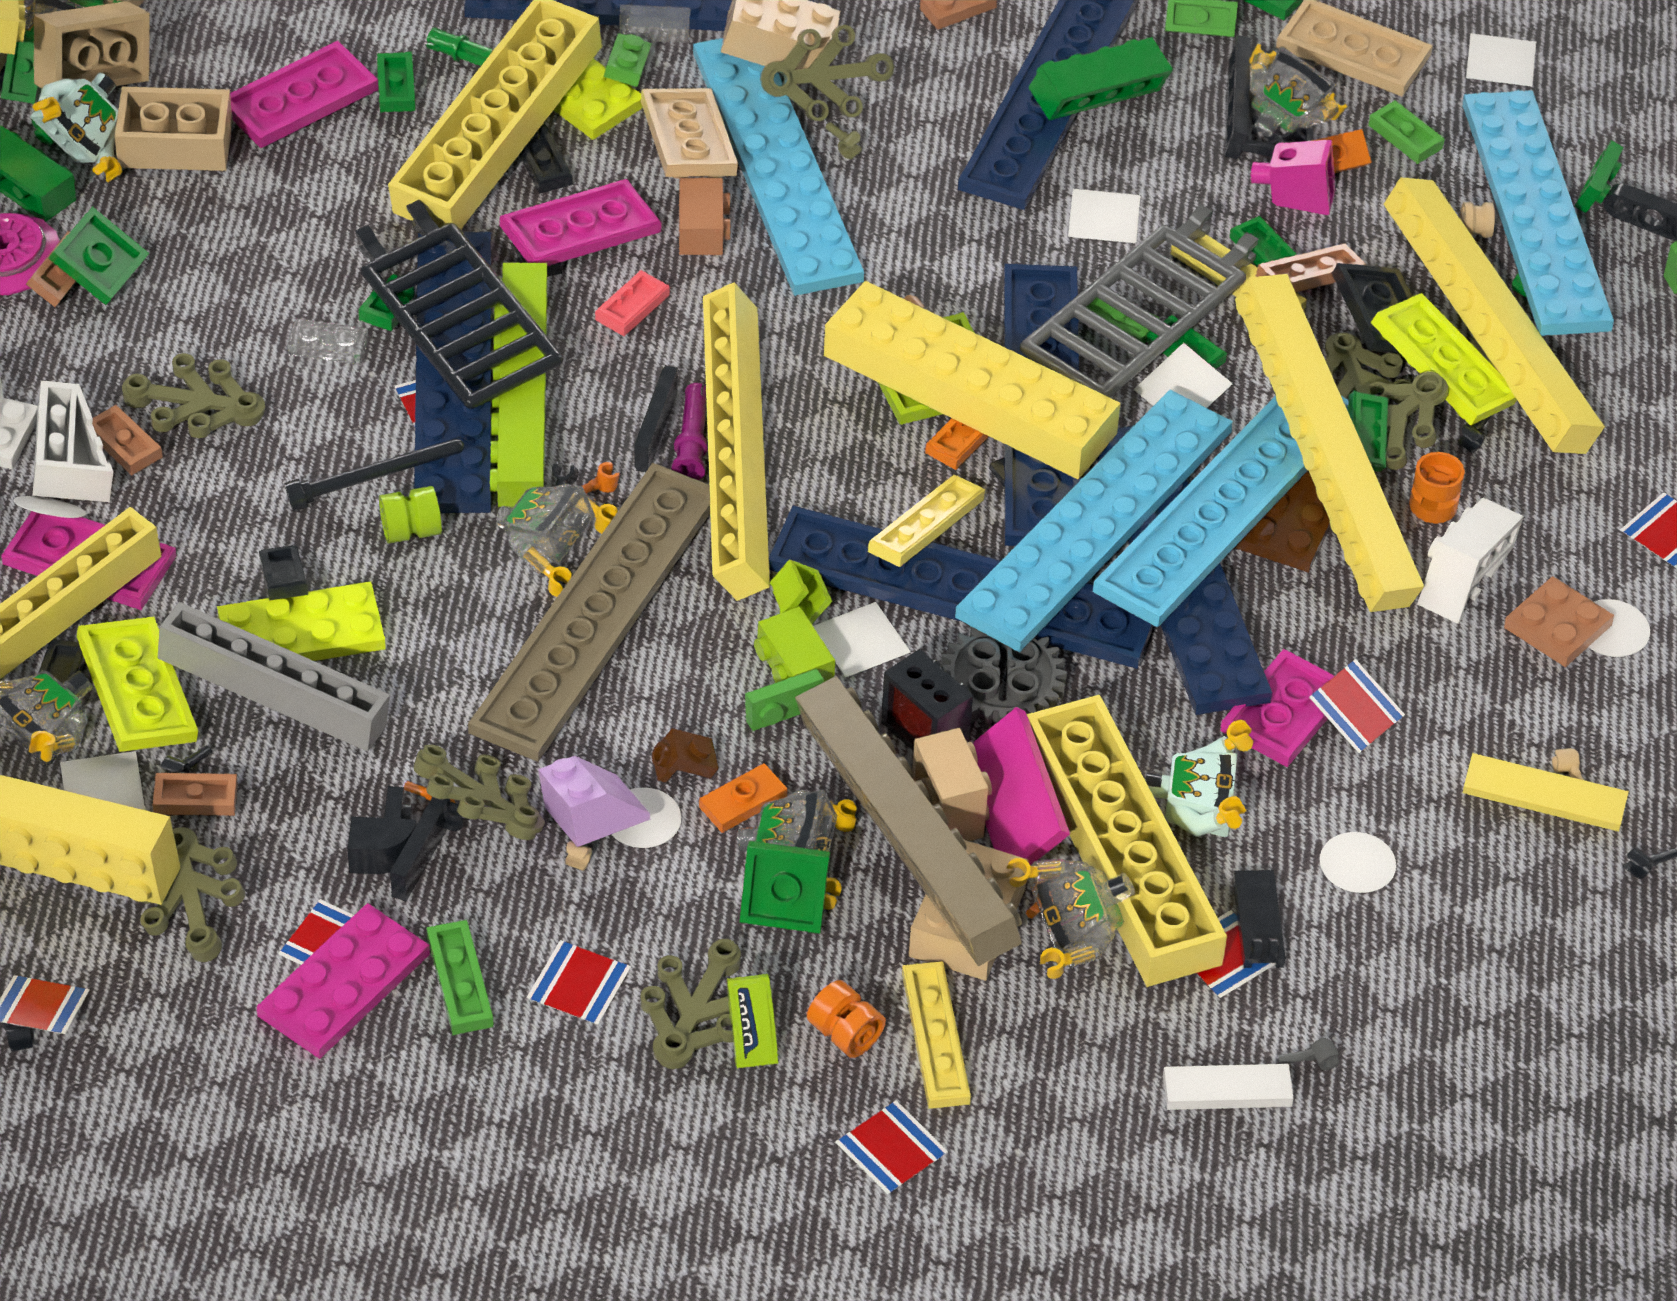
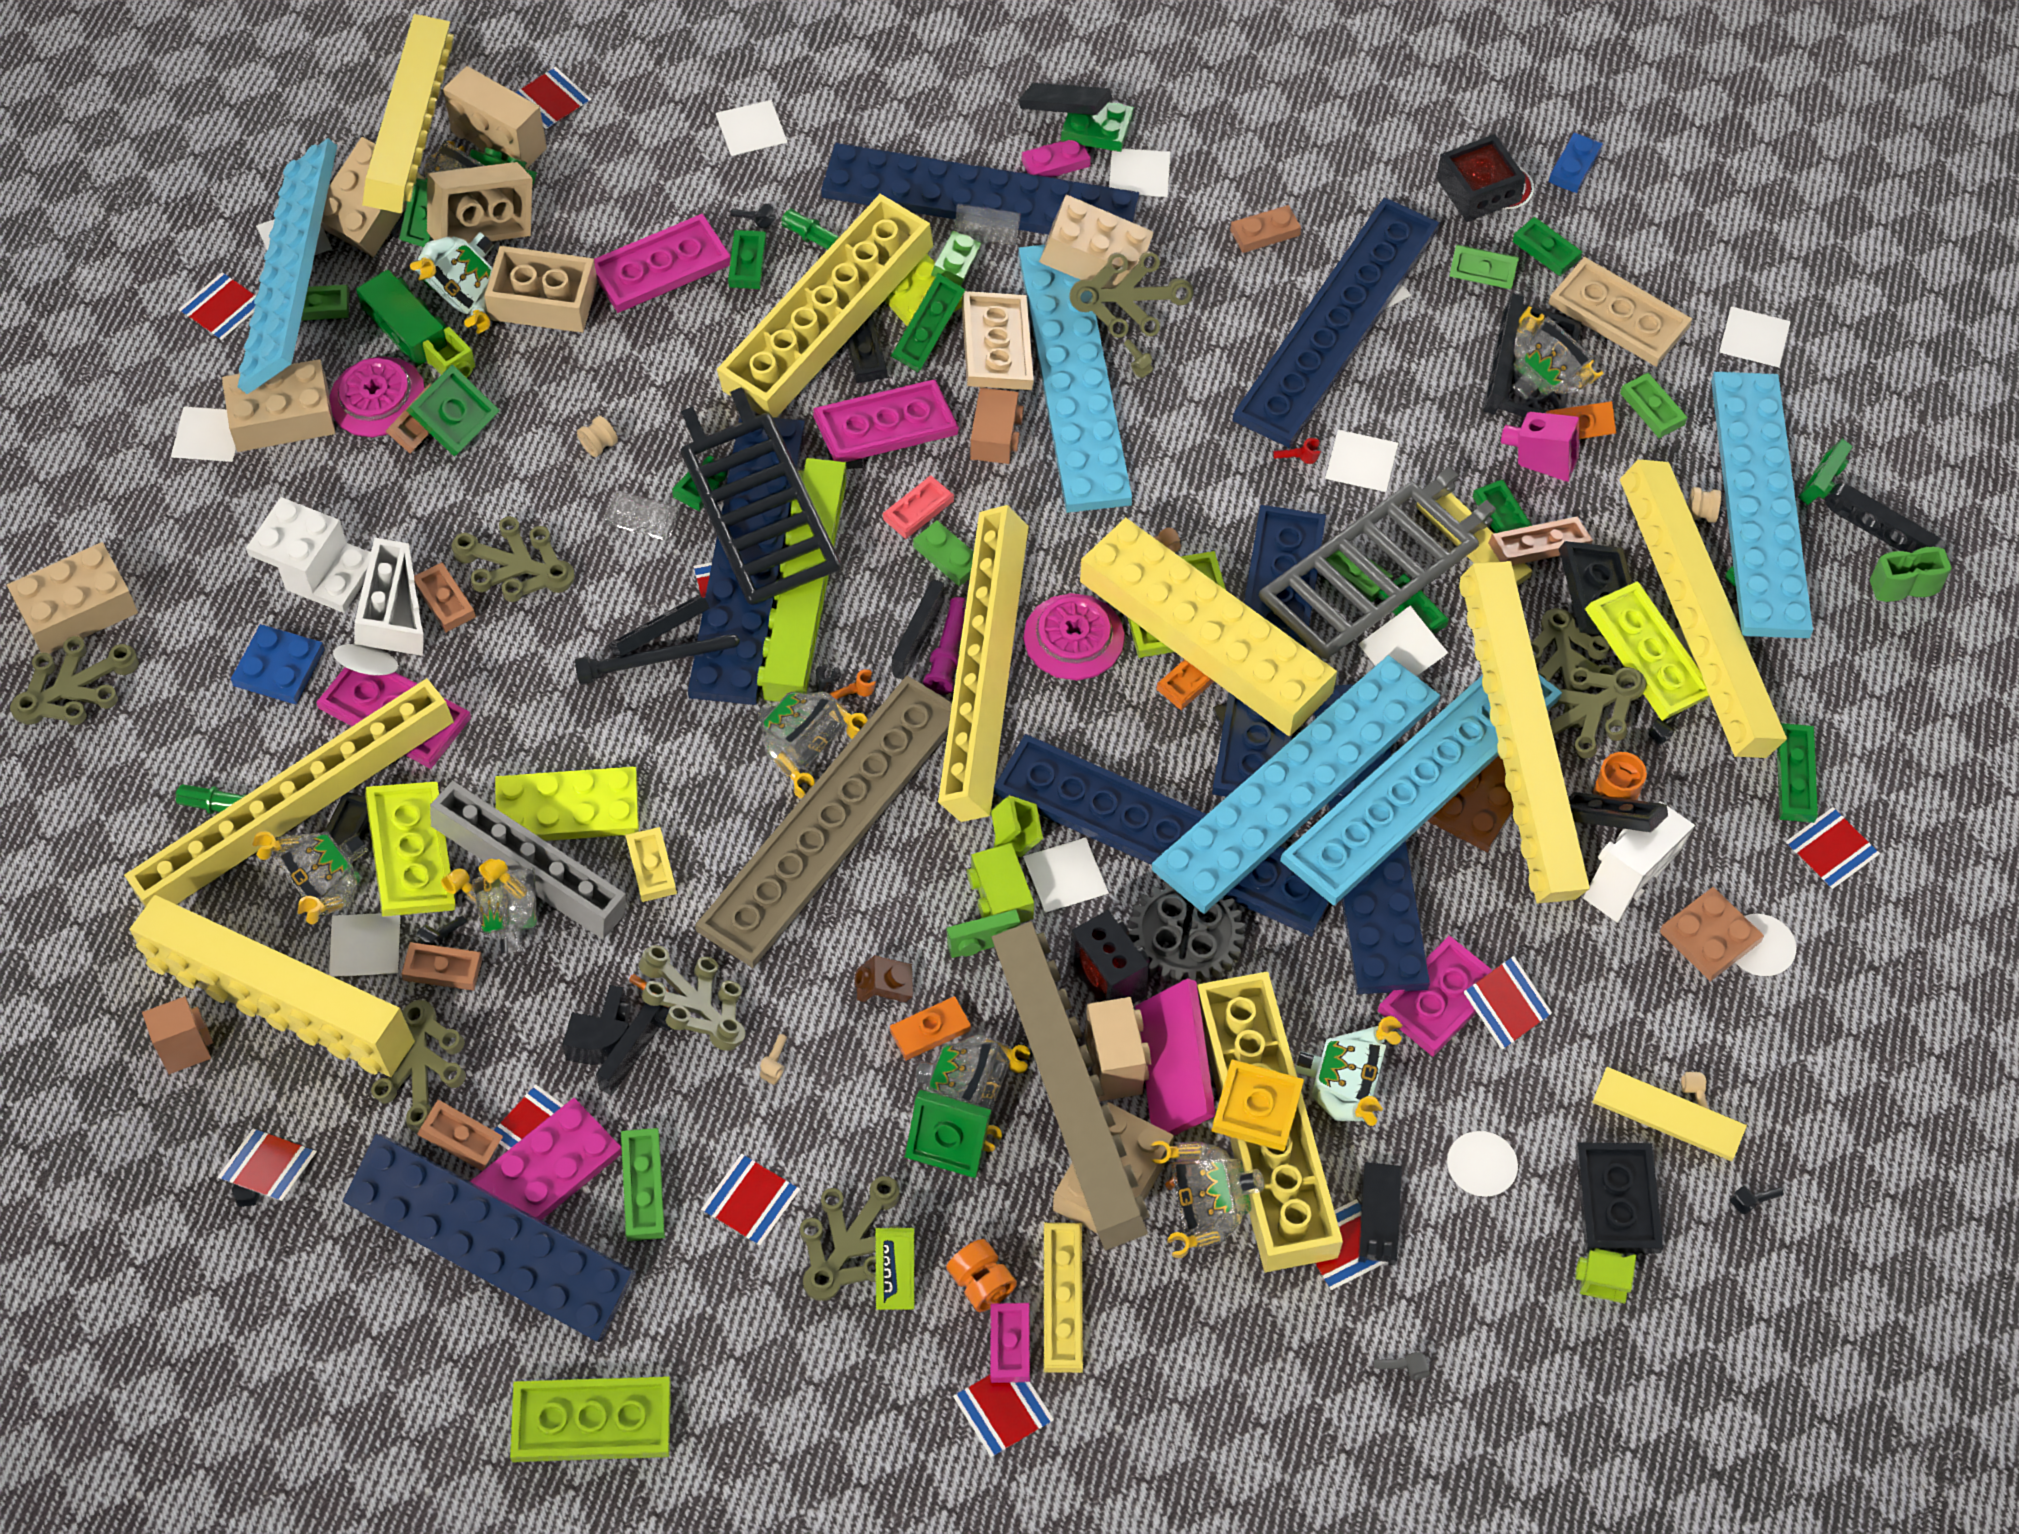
camera: 10 degrees right, 10 degrees up
(87, 195) = (455, 353): none -> lime window
(250, 950) = (460, 1135): none -> nougat plate
(251, 718) = (502, 899): none -> clear torso
(264, 267) = (597, 436): none -> tan wheel
(283, 572) = (559, 749): black tile -> none
(301, 1043) = (489, 1237): none -> dark blue plate
(370, 443) = (658, 626): none -> black tile
(402, 41) = (761, 217): none -> black hand
(407, 673) = (651, 864): none -> light yellow plate
(410, 514) = (680, 704): lime wheel -> none
(448, 1204) = (590, 1419): none -> lime plate
(588, 800) = (790, 1018): lavender slope -> none
(609, 123) = (928, 322): none -> green plate
(664, 821) = (837, 1036): white sticker -> none
(671, 345) = (945, 552): none -> bright green plate
(825, 412) = (1074, 655): none -> dark pink piece
(888, 1080) = (1010, 1342): none -> dark pink plate
(926, 520) = (1143, 764): light yellow tile -> none
(1045, 213) = (1306, 453): none -> red hand
(1100, 78) = (1378, 324): green brick -> none
(1114, 815) = (1257, 1105): none -> yellow plate
(1228, 1086) = (1321, 1387): white tile -> none
(1370, 420) = (1565, 715): green plate -> none
(1441, 510) = (1616, 812): none -> black tile
(1507, 874) = (1619, 1197): none -> black plate
(1507, 946) = (1606, 1275): none -> lime window
(1621, 463) = (1797, 774): none -> green plate

